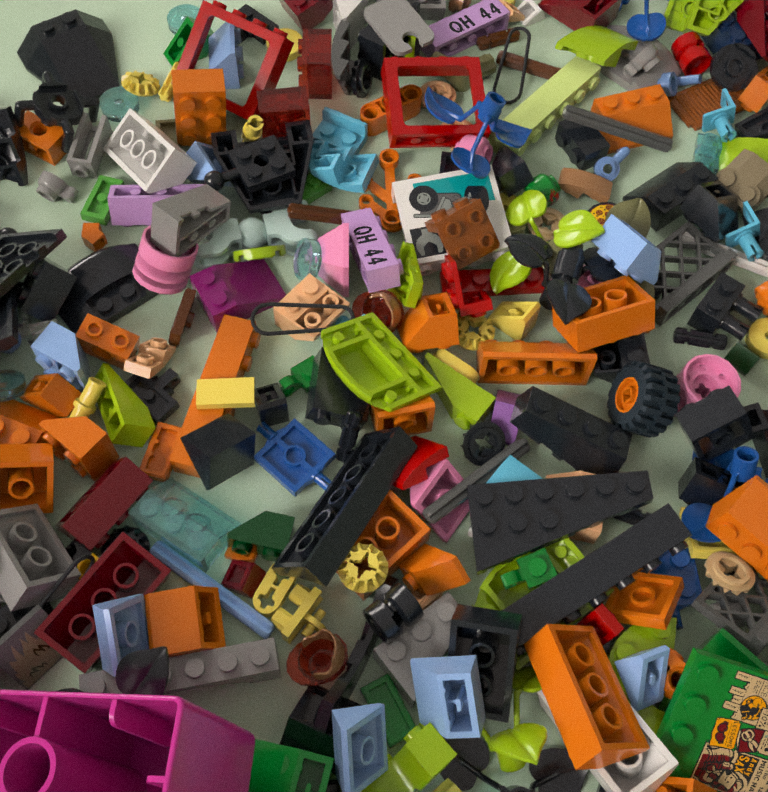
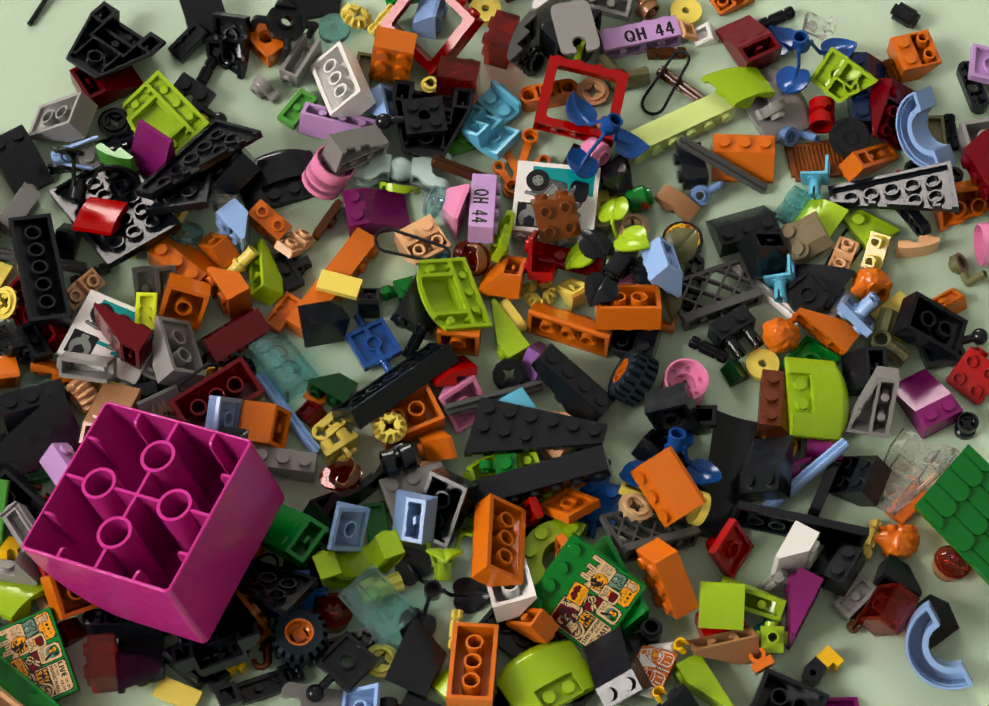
camera: 20 degrees right, 0 degrees up
(93, 236) = (281, 137): orange piece -> none
(644, 676) = (543, 546): light blue slope -> none

